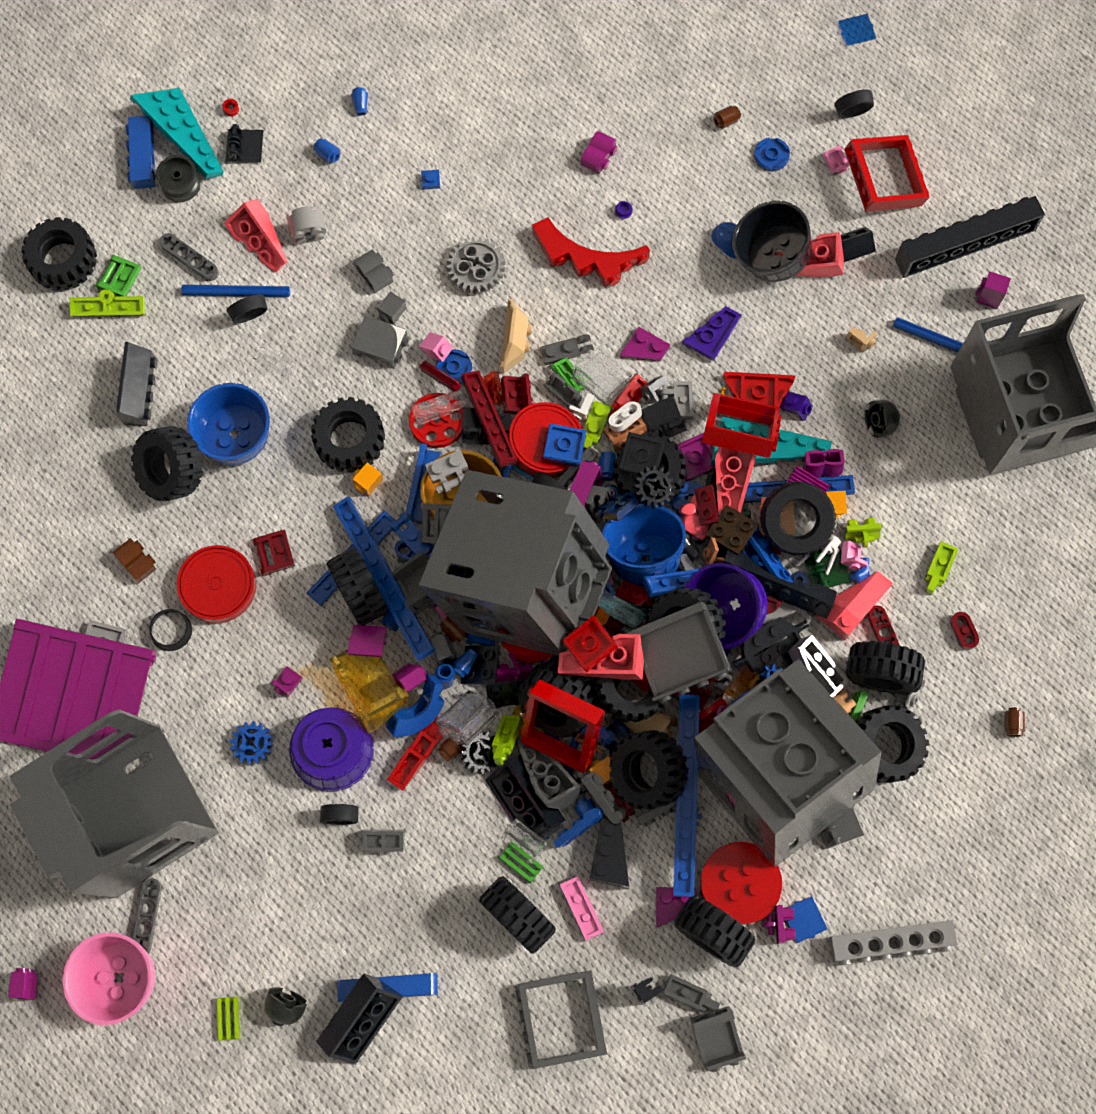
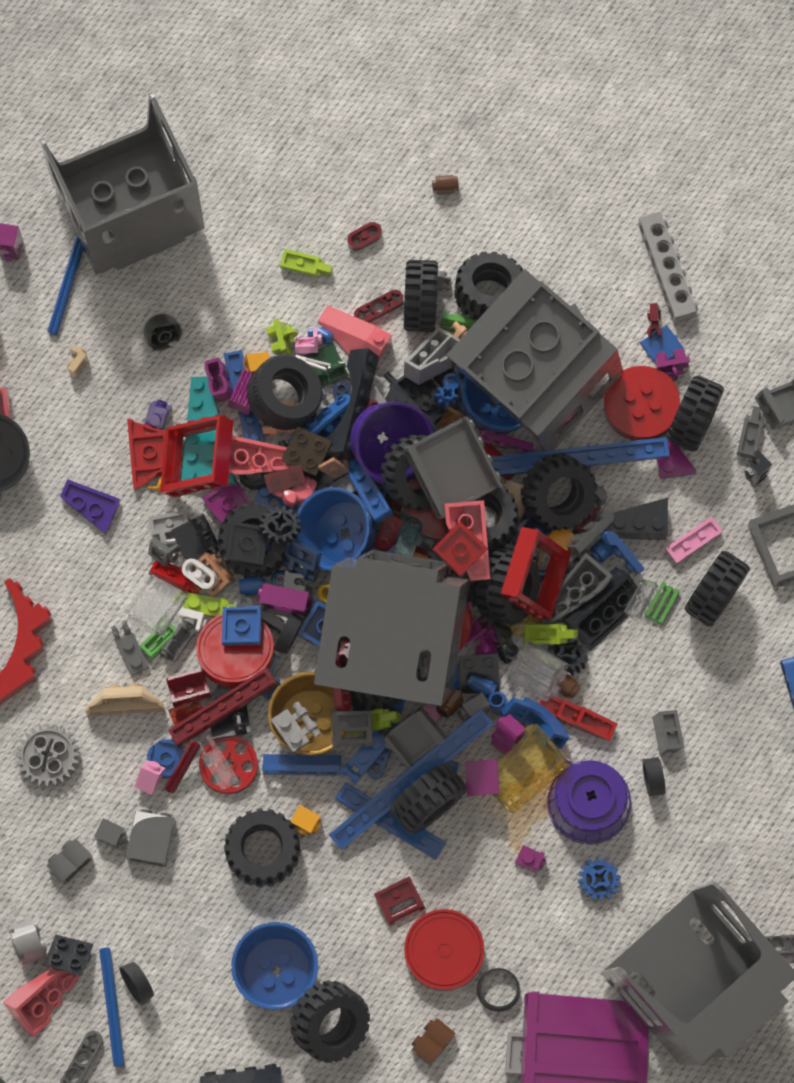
camera: 100 degrees left, 0 degrees up
(286, 257) = (68, 955): none -> black hinge
(645, 346) = (114, 570): magenta wing -> none
(835, 916) = (654, 317): none -> dark red plate

